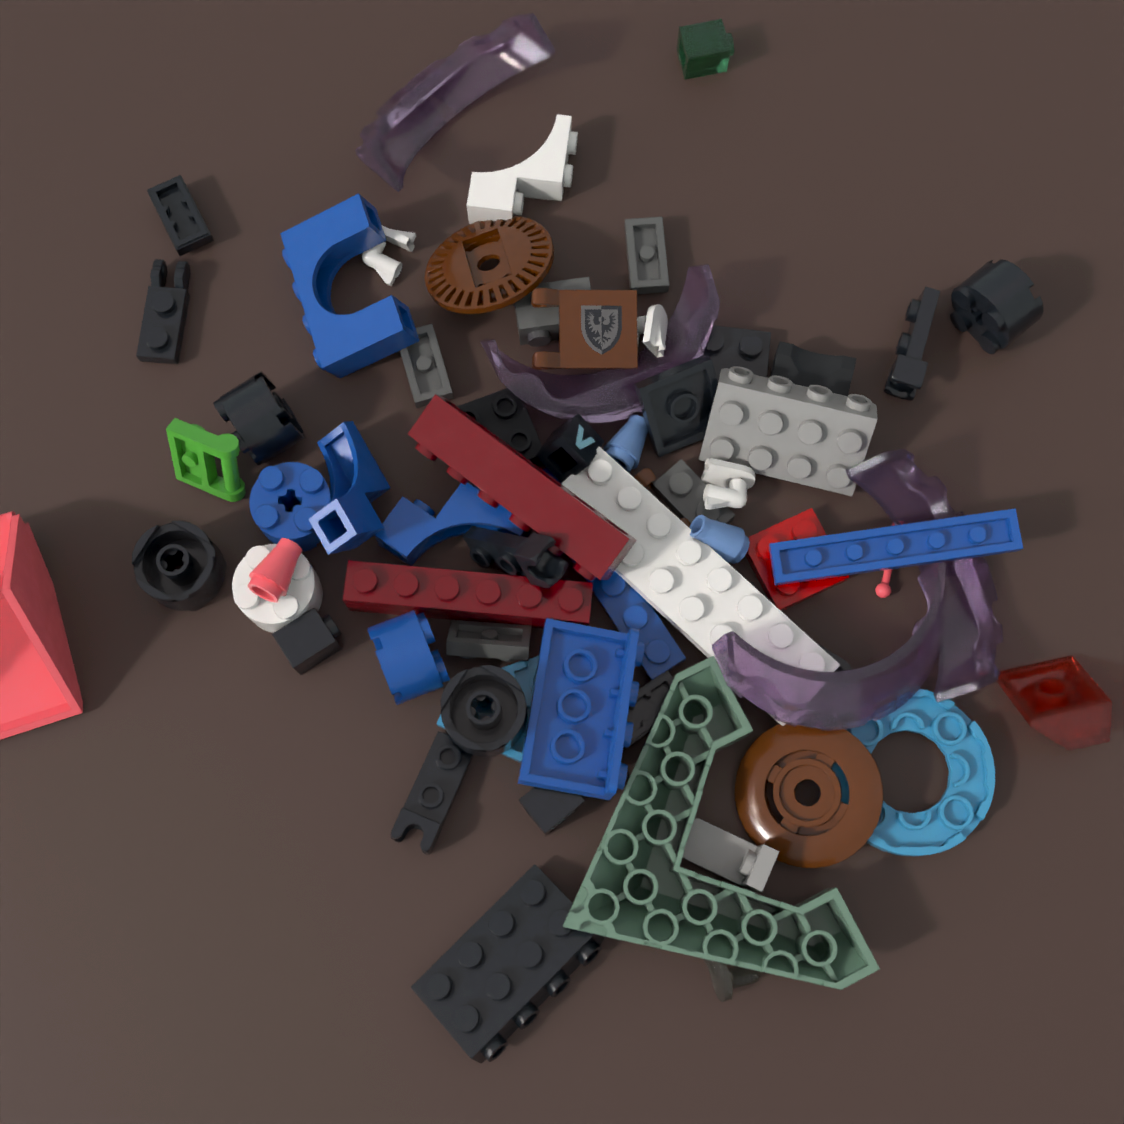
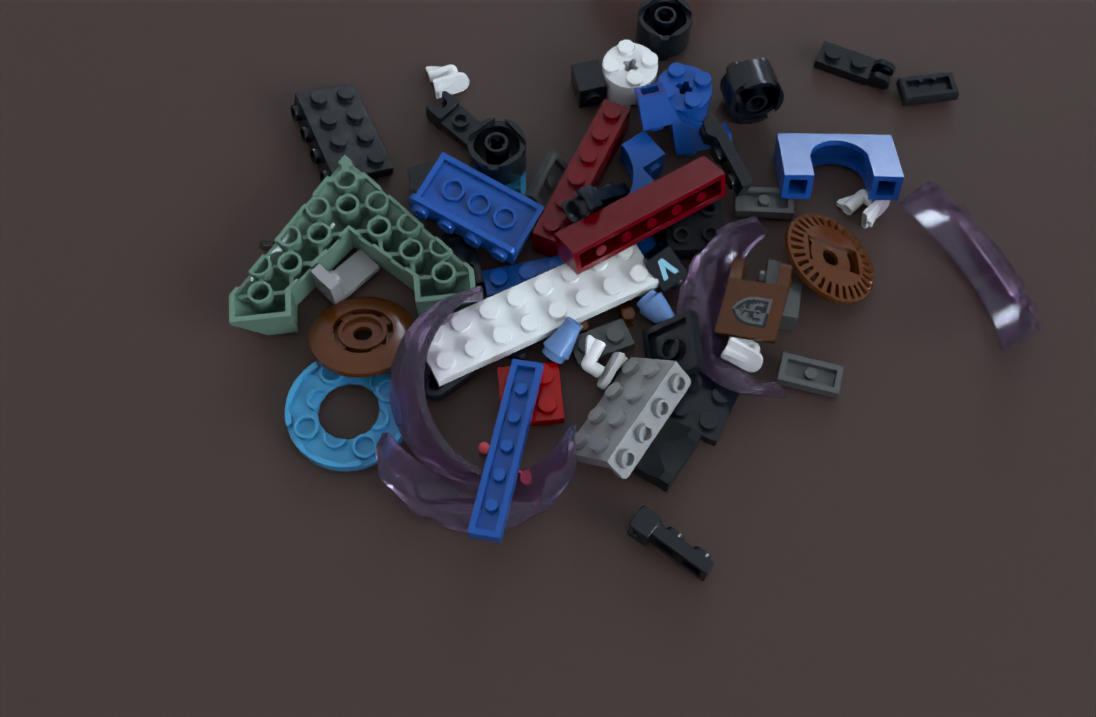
camera: 110 degrees right, 10 degrees down
(195, 464) = (732, 51): bright green plate -> none
(274, 573) = (633, 58): coral cone -> none
(347, 867) = (447, 79): none -> white piece
(389, 413) = (726, 155): none -> black hinge
(406, 657) = (553, 125): blue brick -> none
(541, 176) = (902, 325): white arch -> none
(704, 48) = (991, 481): clear green brick -> none
(995, 305) = (679, 612): black brick -> none
(1060, 701) = (350, 527): clear red slope -> none

